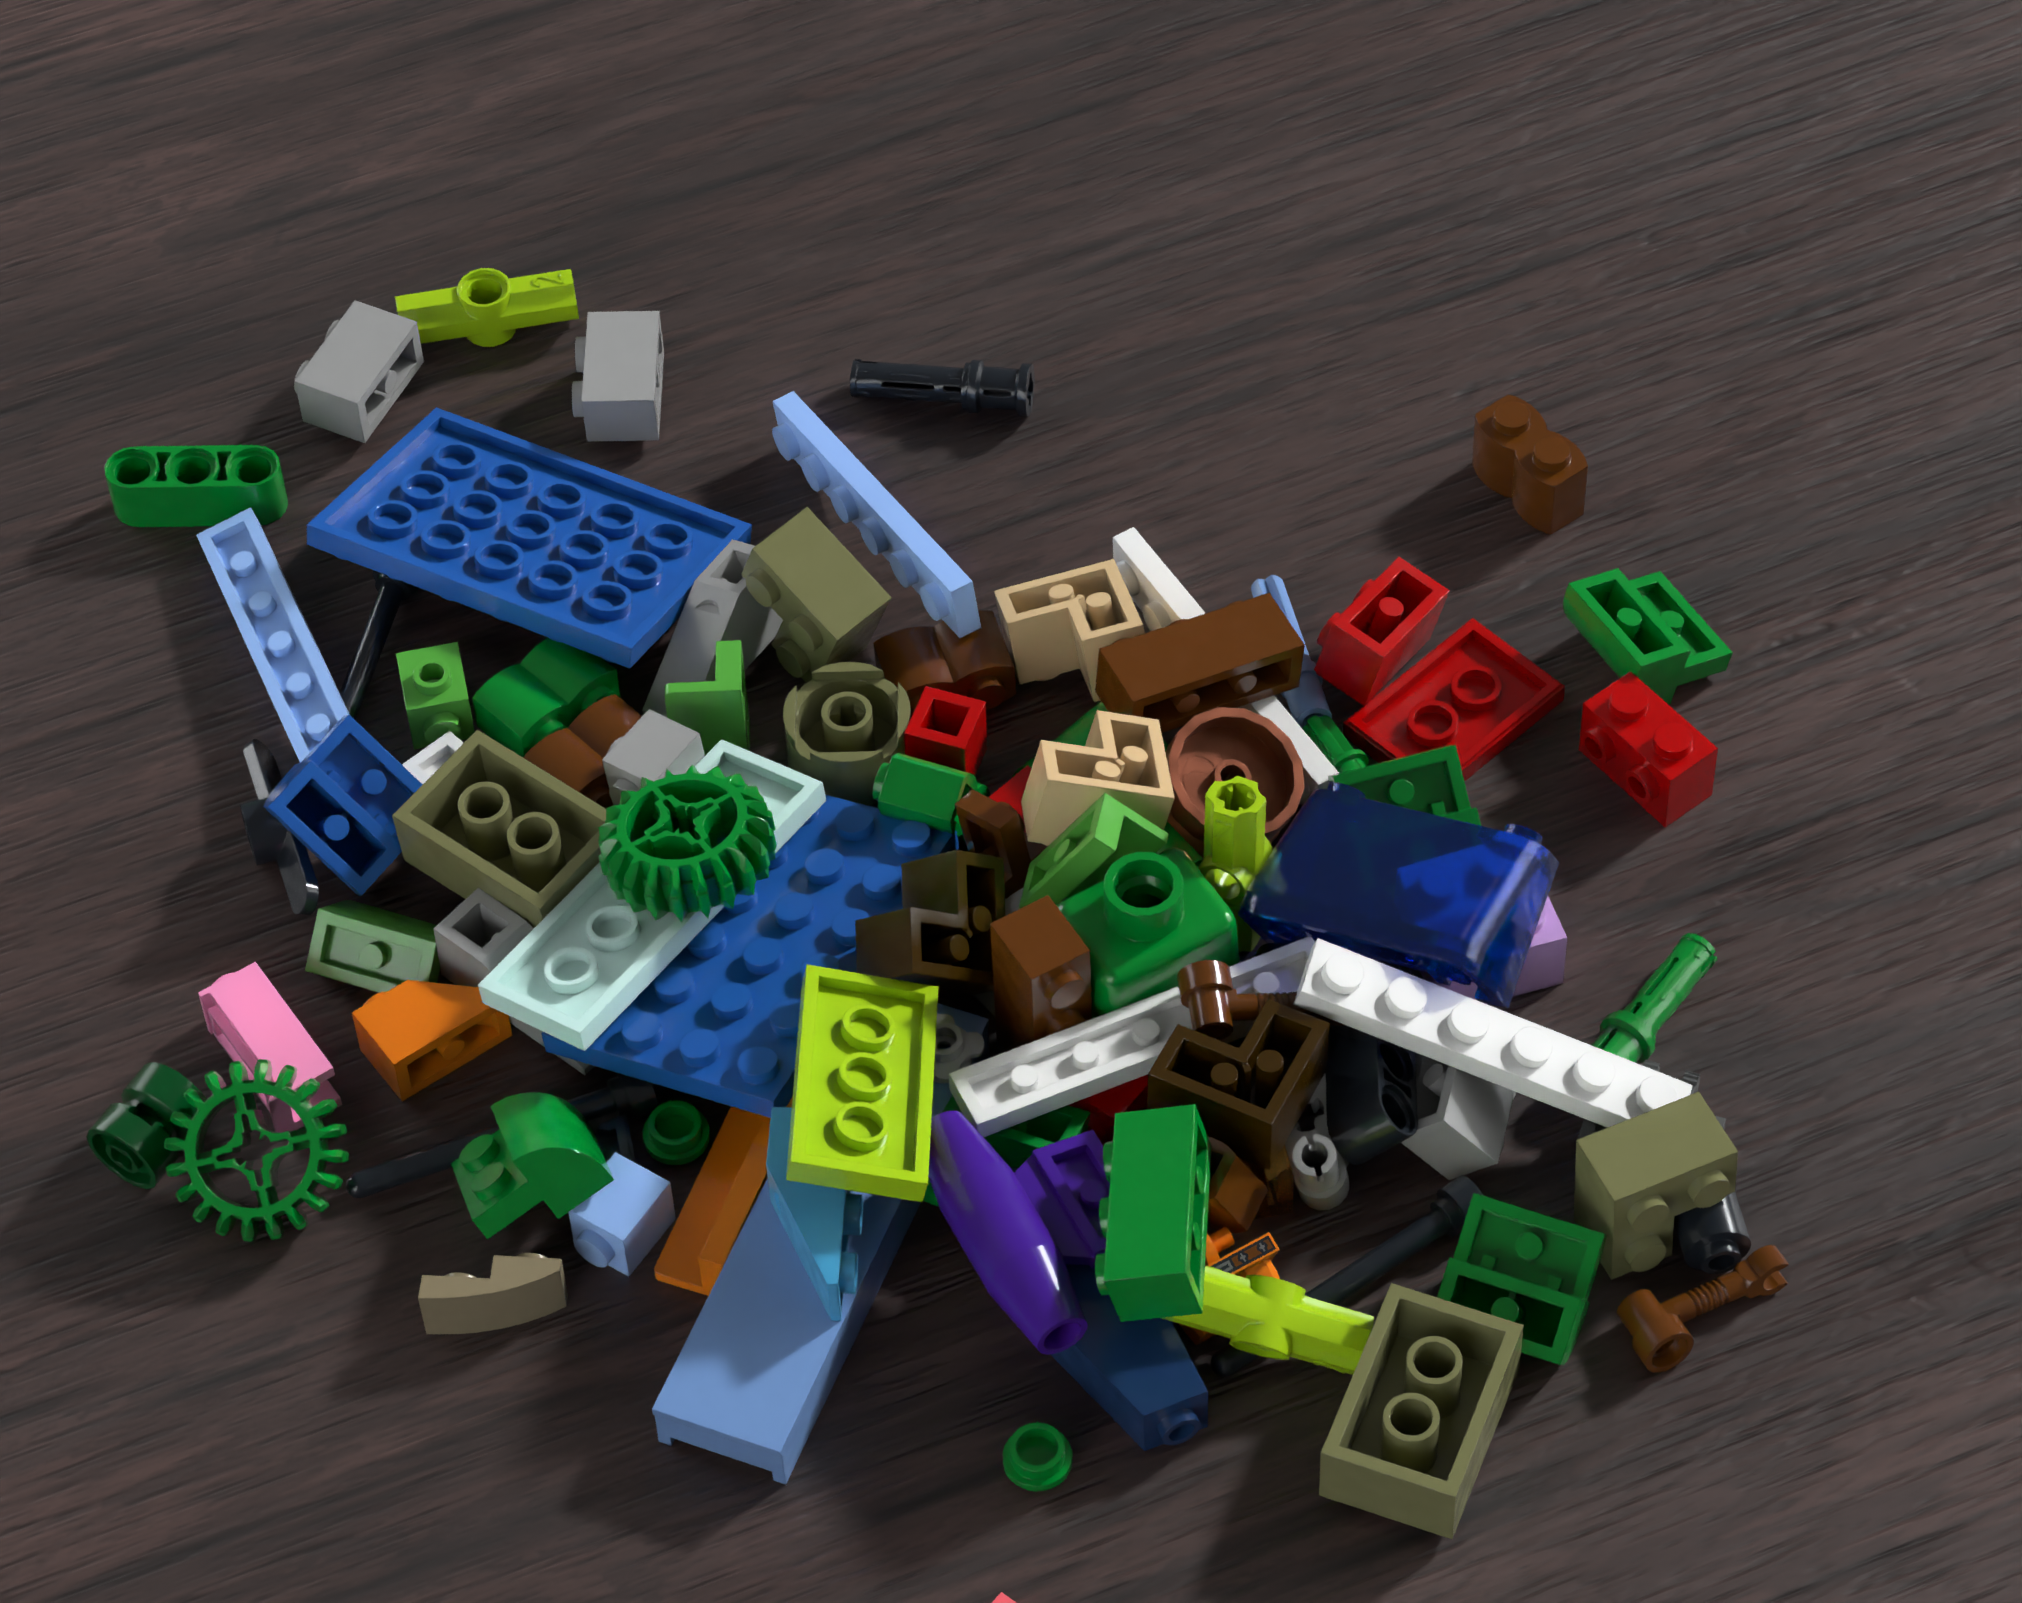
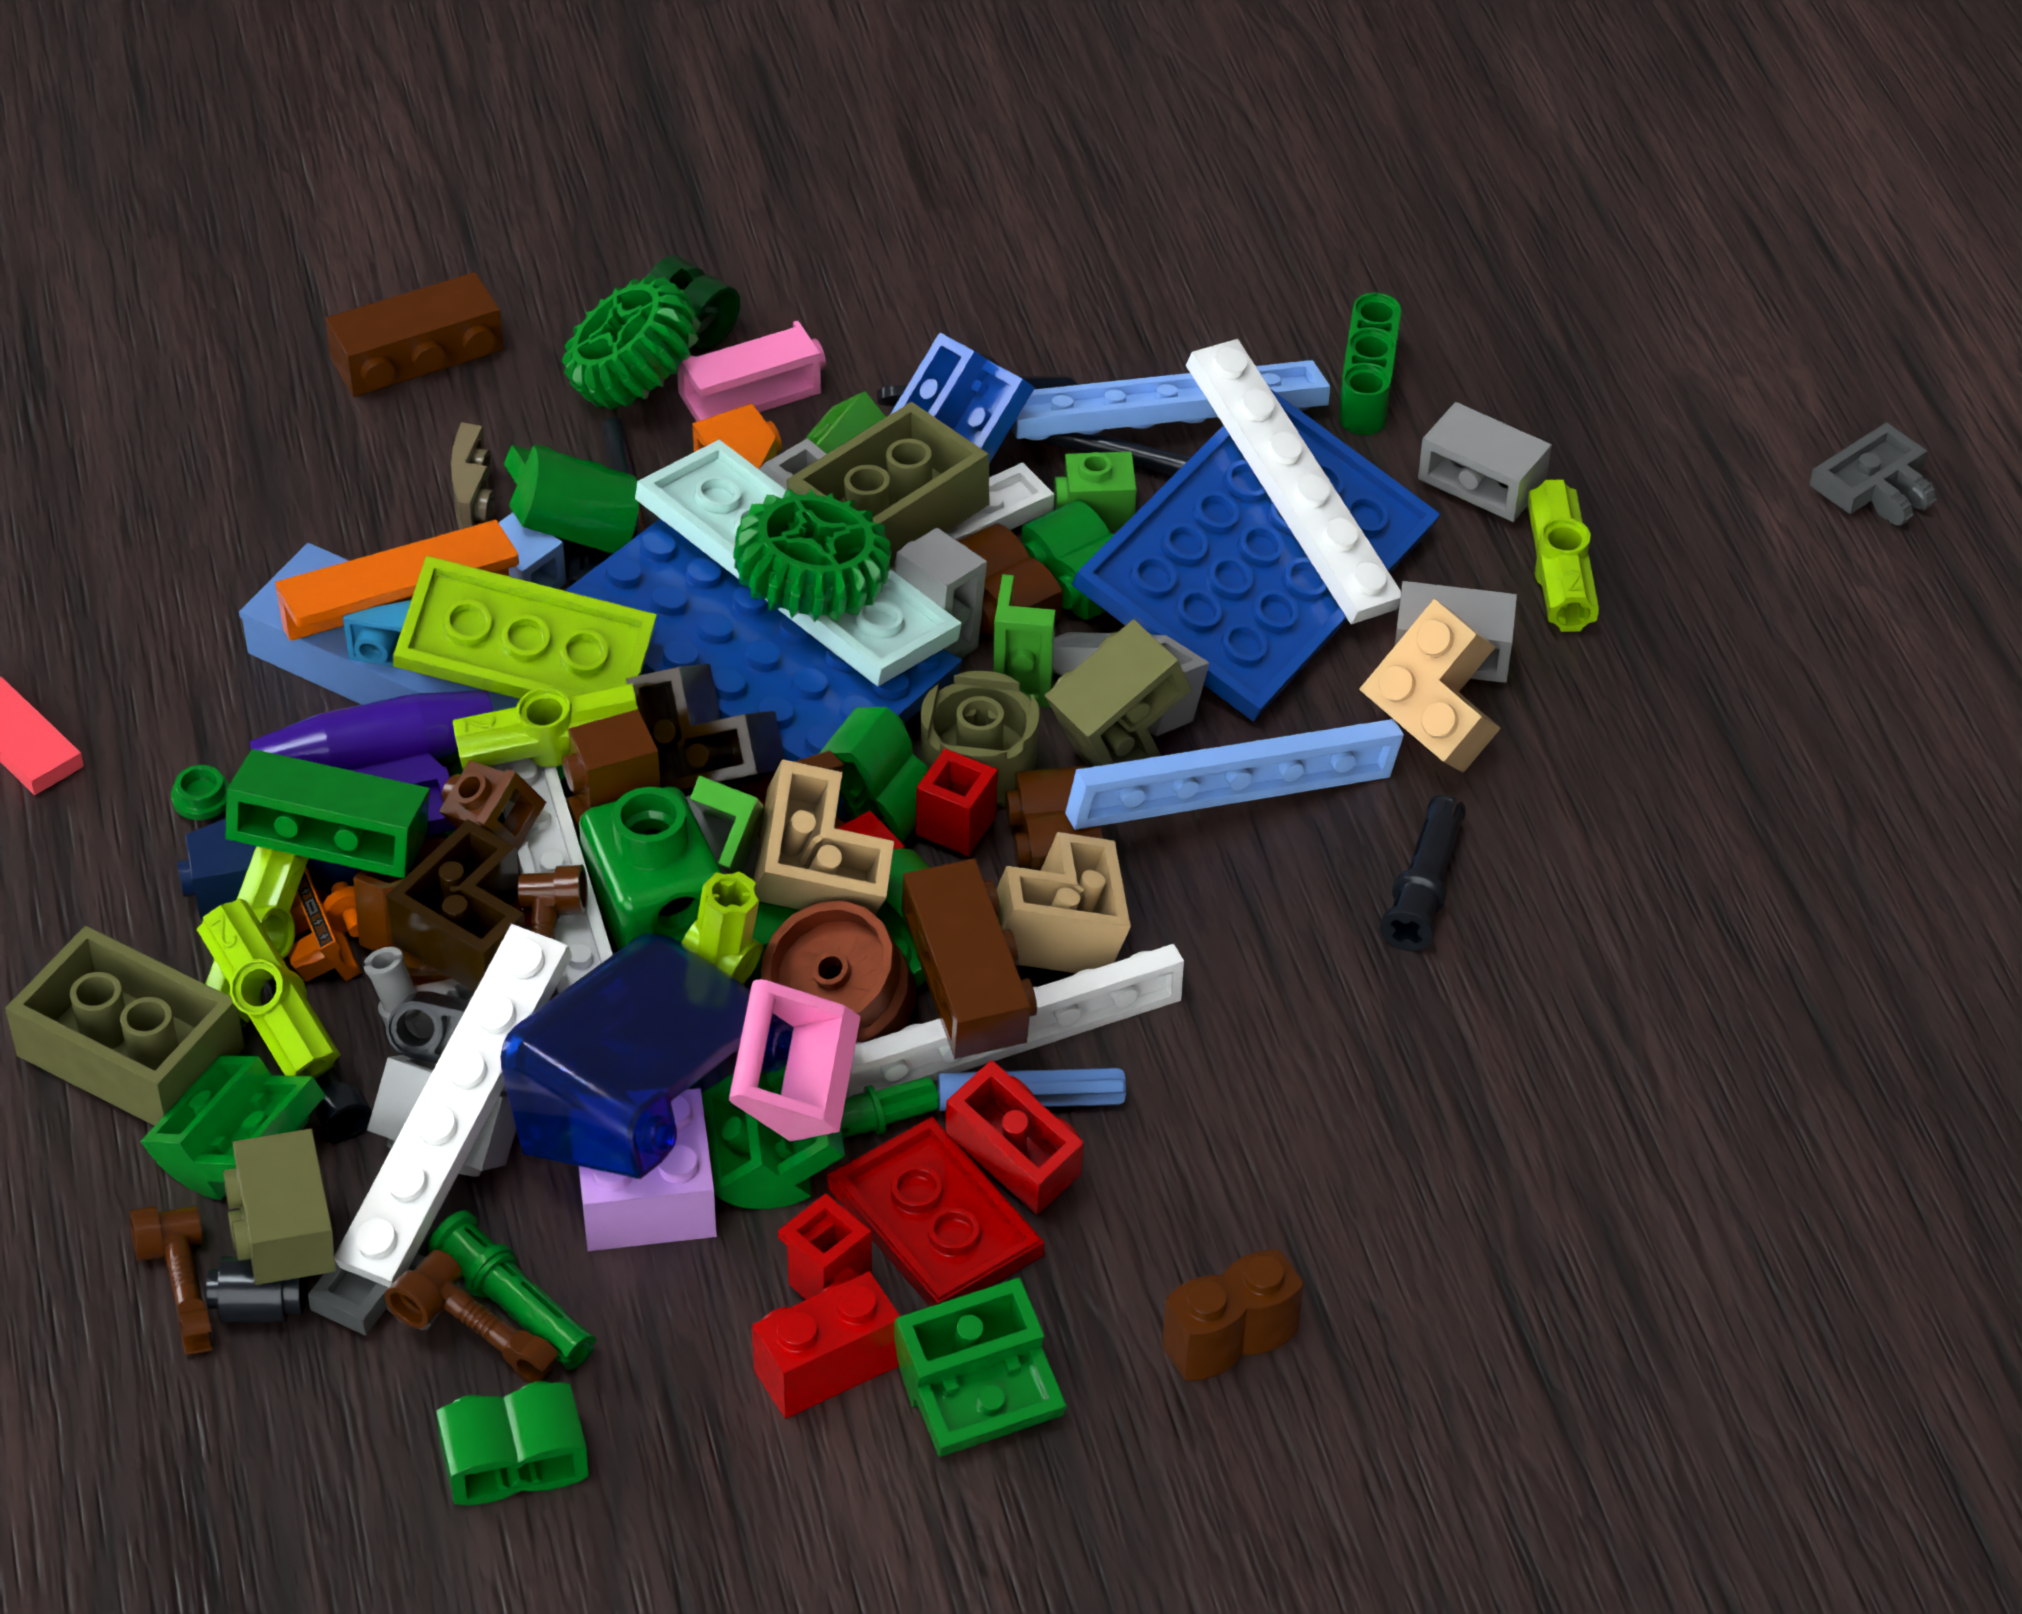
camera: 95 degrees right, 5 degrees down
(228, 1411) = (414, 334): none -> reddish brown brick
(326, 88) = (1871, 470): none -> dark grey hinge
(441, 497) = (1294, 481): none -> white plate
(720, 372) = (1422, 685): none -> tan brick
(755, 1254) = (323, 596): none -> orange panel
(1000, 1066) = (537, 725): none -> lime piece
(1116, 1051) = (481, 797): none -> reddish brown brick
(1371, 1257) = (248, 962): none -> lime piece
(1386, 757) = (815, 1067): none -> bright pink tile
(1547, 769) = (825, 1247): none -> red brick
(1690, 1052) = (432, 1288): none -> reddish brown brick
(1824, 974) = (512, 1443): none -> green brick

